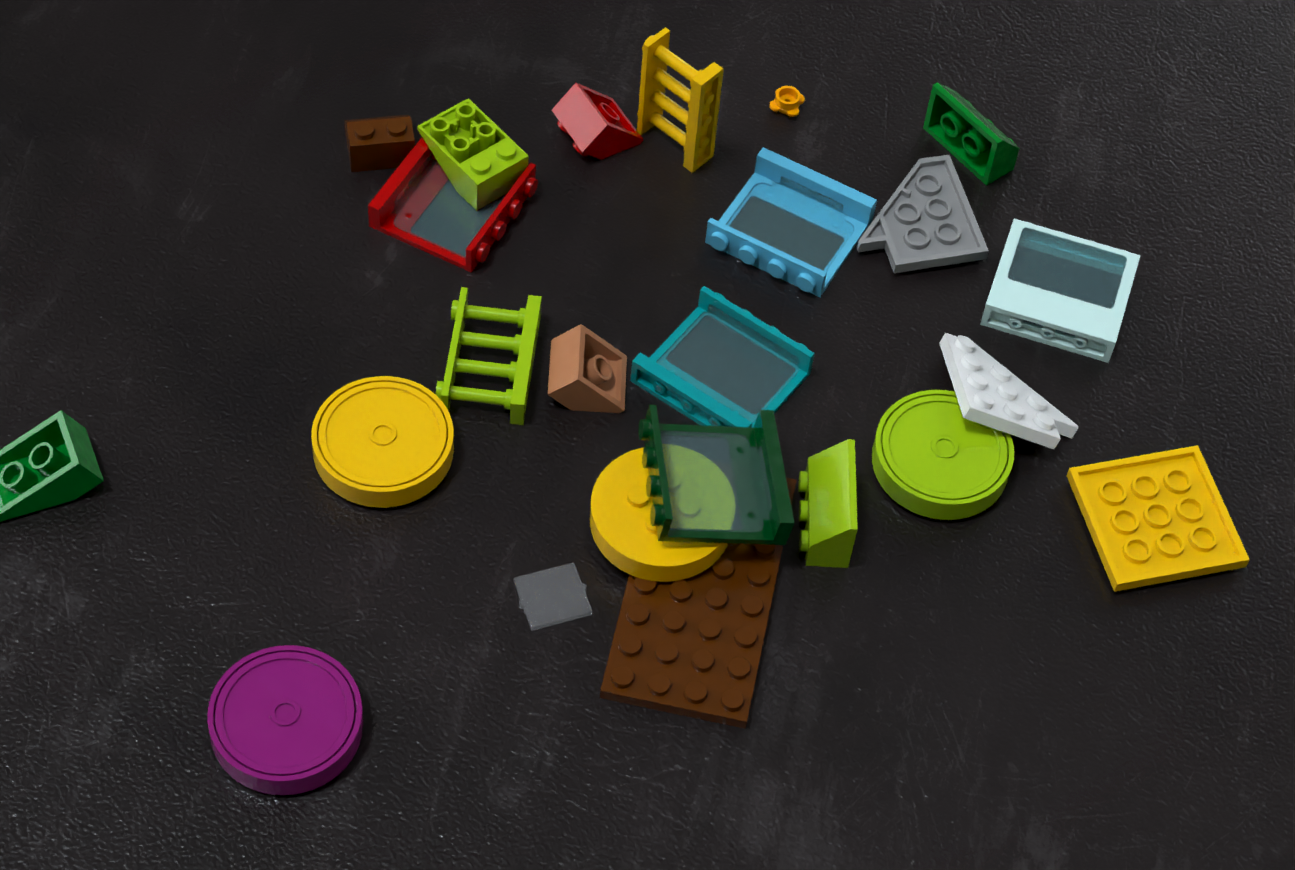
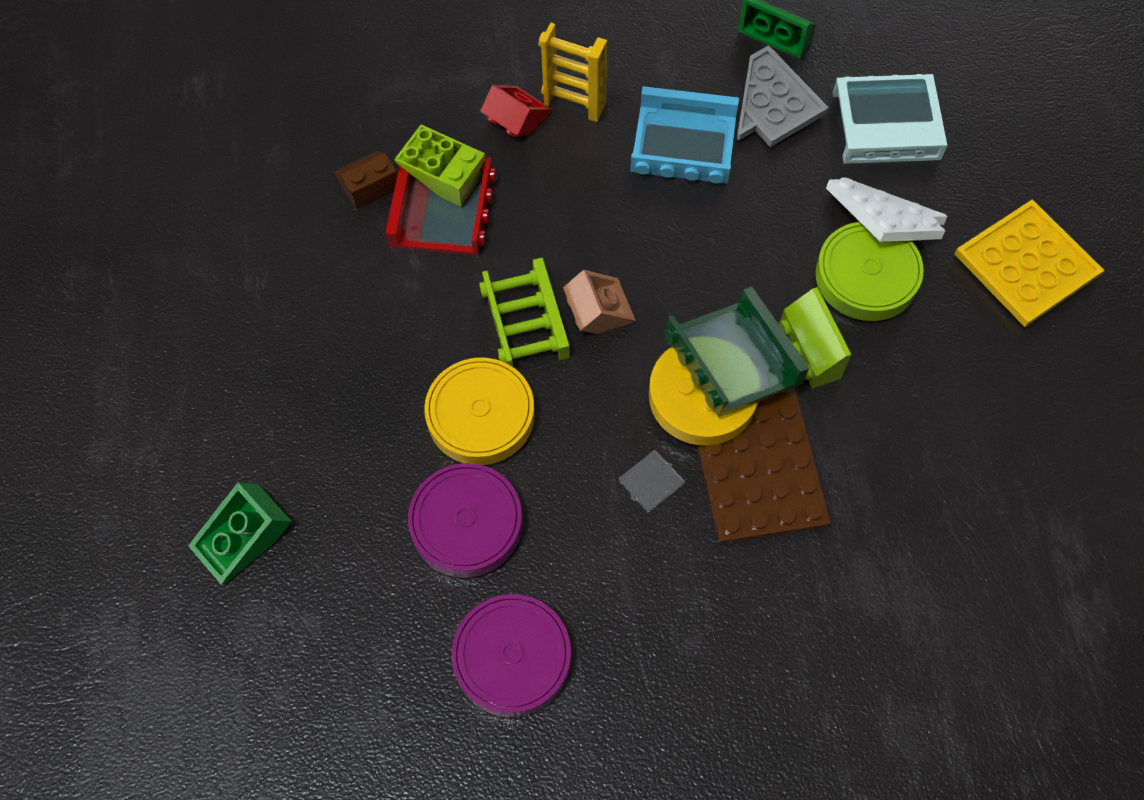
camera: 15 degrees left, 10 degrees up
(305, 554) = (465, 520): none -> magenta brick
(723, 365) = (689, 262): panel -> none
(787, 101) = (638, 44): light orange plate -> none

